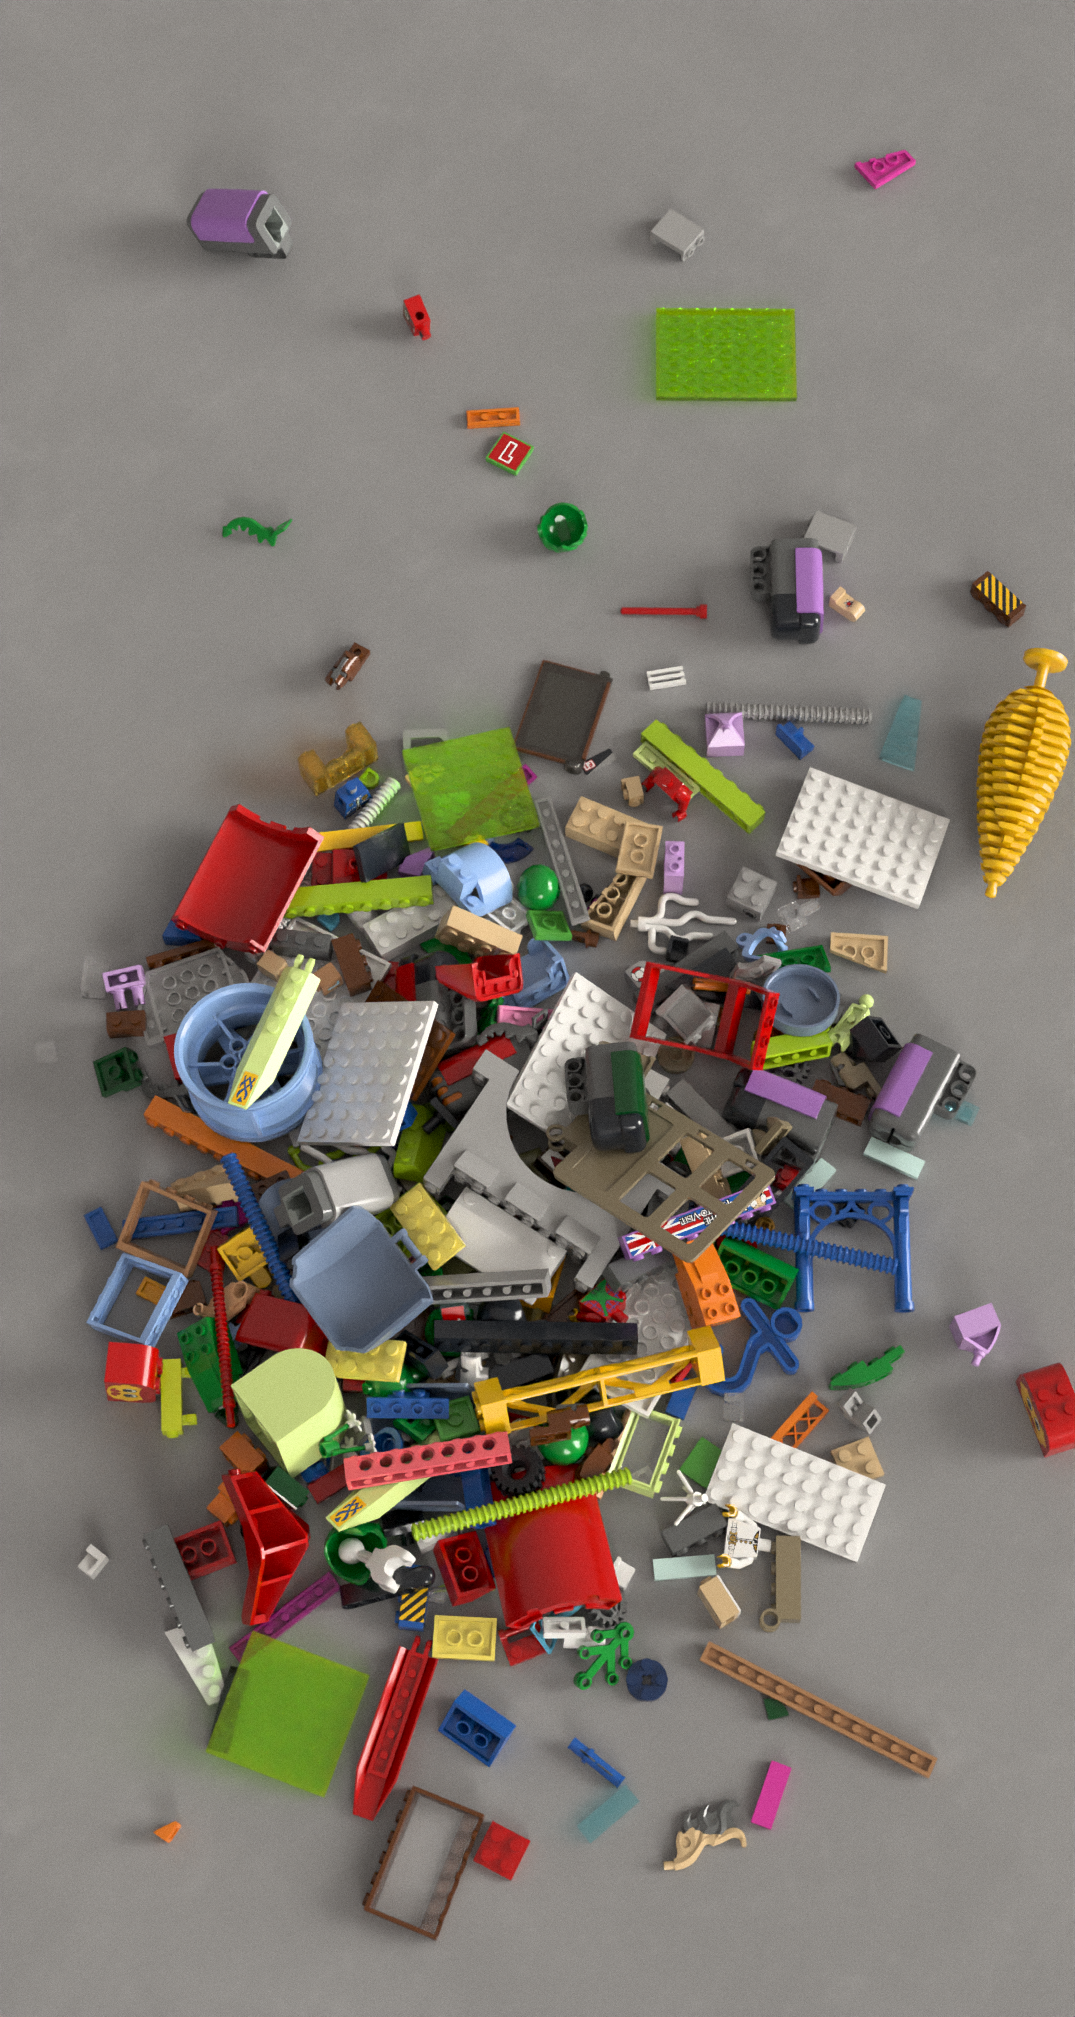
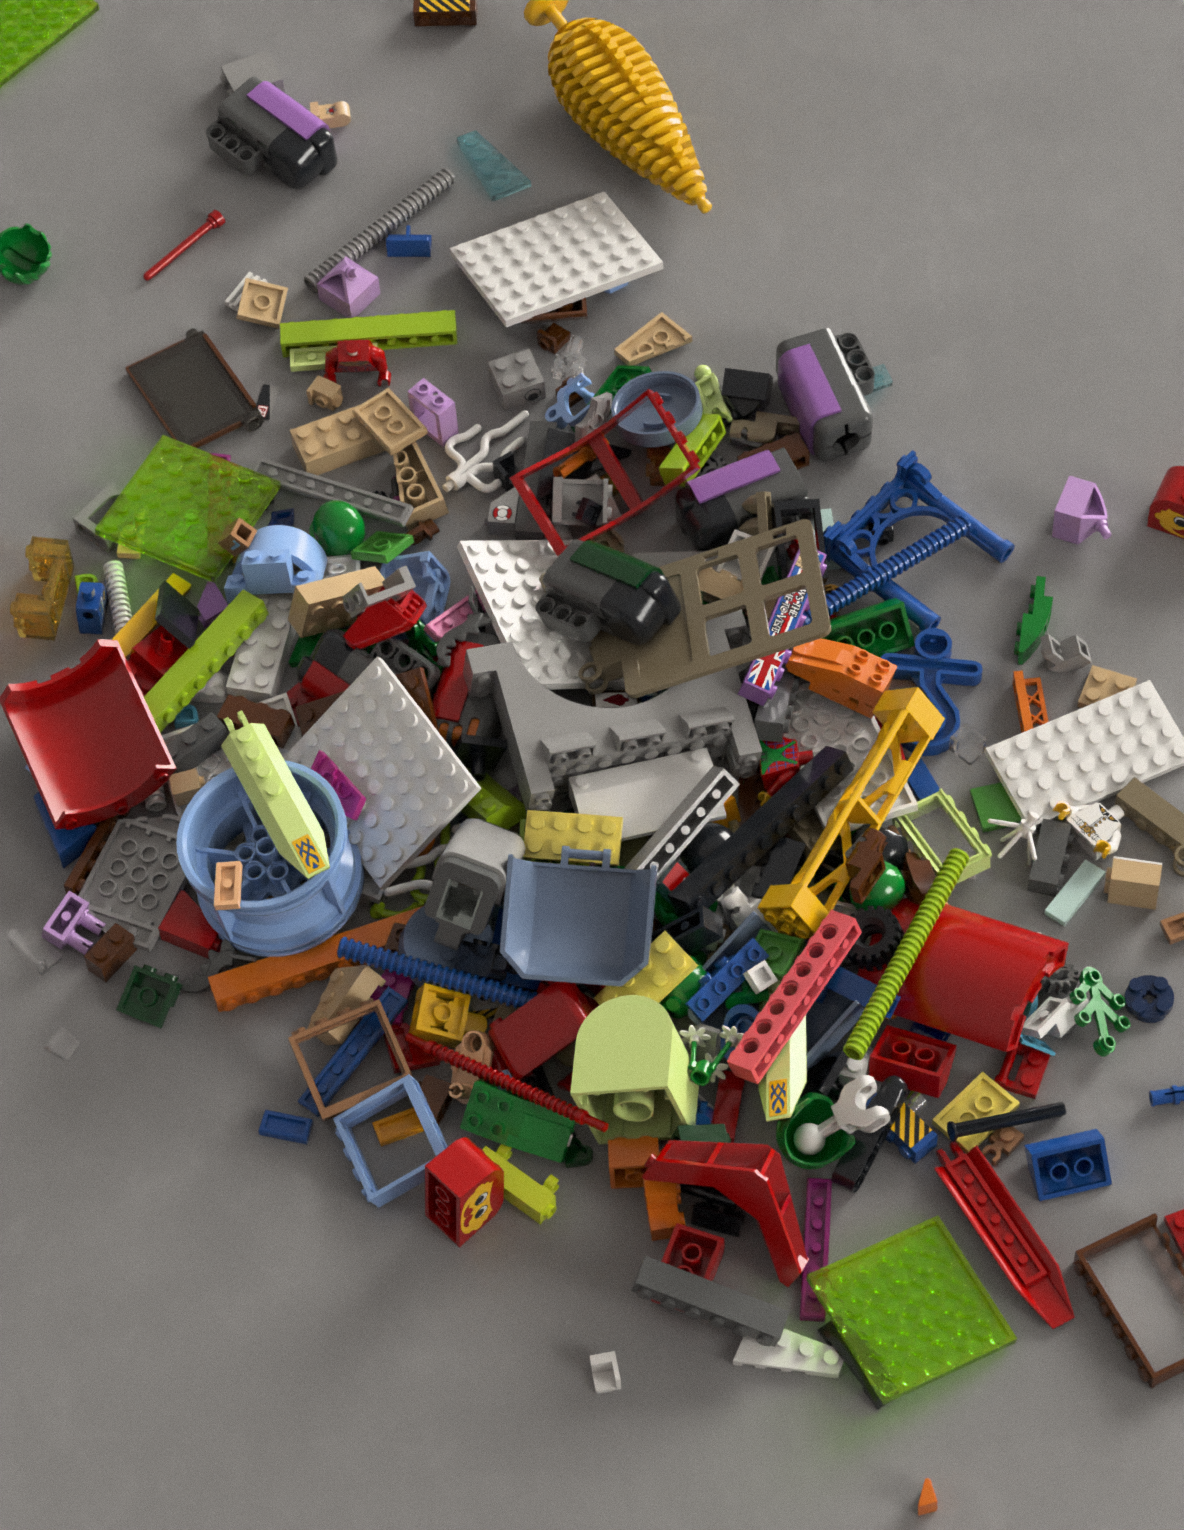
camera: 45 degrees left, 10 degrees down
(187, 1060) = (228, 885): none -> light nougat plate
(333, 1054) = (349, 796): none -> dark pink wing
(426, 1427) = (760, 977): none -> white plate
(463, 1672) = (1003, 1141): none -> medium nougat plate
(466, 837) = (237, 537): none -> medium nougat brick
(472, 1663) = (1005, 1120): none -> black axle
(493, 971) = (395, 586): none -> light grey panel
(664, 694) = (262, 303): none -> tan plate
(682, 1026) = (588, 511): none -> black tile
(894, 1158) = (863, 460): light aqua tile -> none

